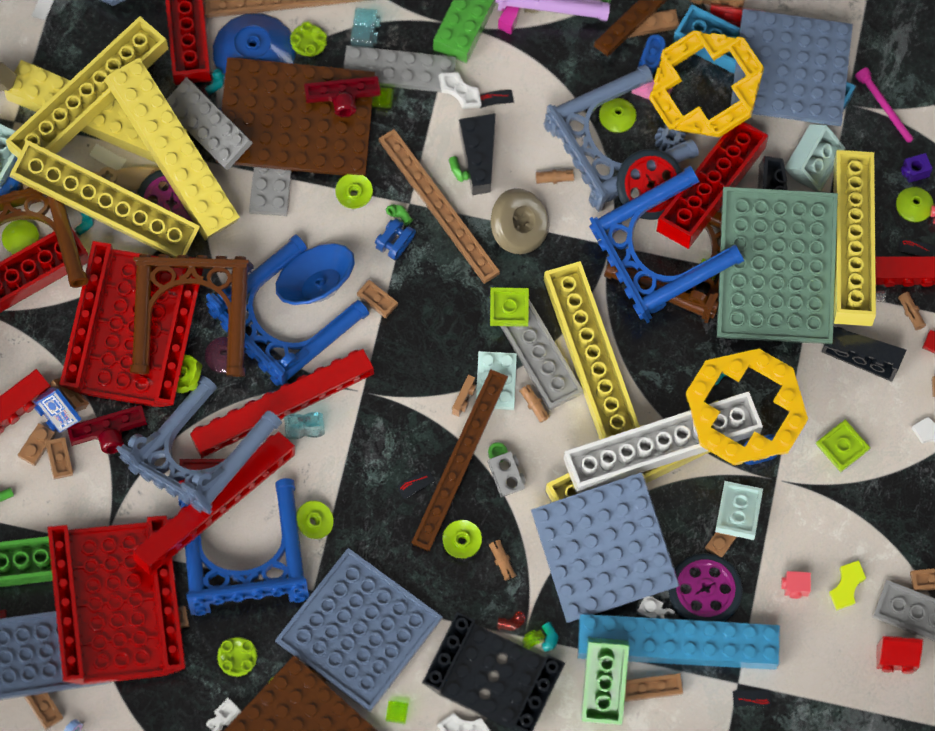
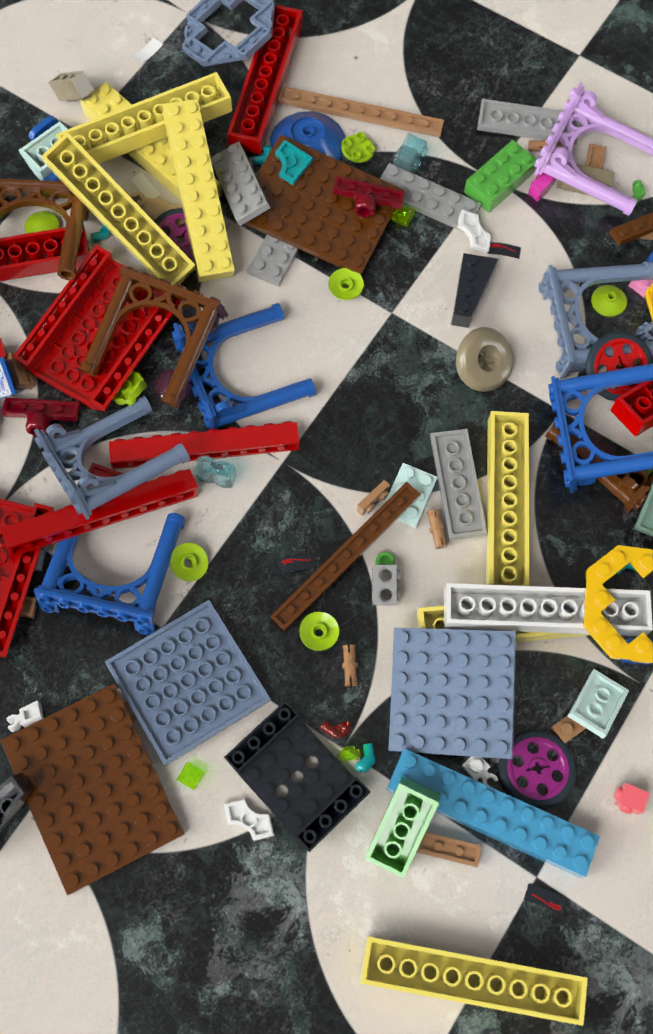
camera: 20 degrees right, 0 degrees up
(237, 656) = (63, 664): lime dish -> none
(253, 82) = (293, 162): none -> teal tile
(315, 274) = (280, 342): blue dish -> none
(377, 299) = (328, 384): medium nougat plate -> none
(393, 229) = (365, 337): blue brick -> none
(400, 212) = (379, 316): bright green arm -> none
(439, 206) = (417, 325): medium nougat plate -> none
(455, 168) = (444, 295): bright green arm -> none
(509, 306) = (446, 432): lime plate -> none
(554, 176) = (532, 333): medium nougat pin -> none

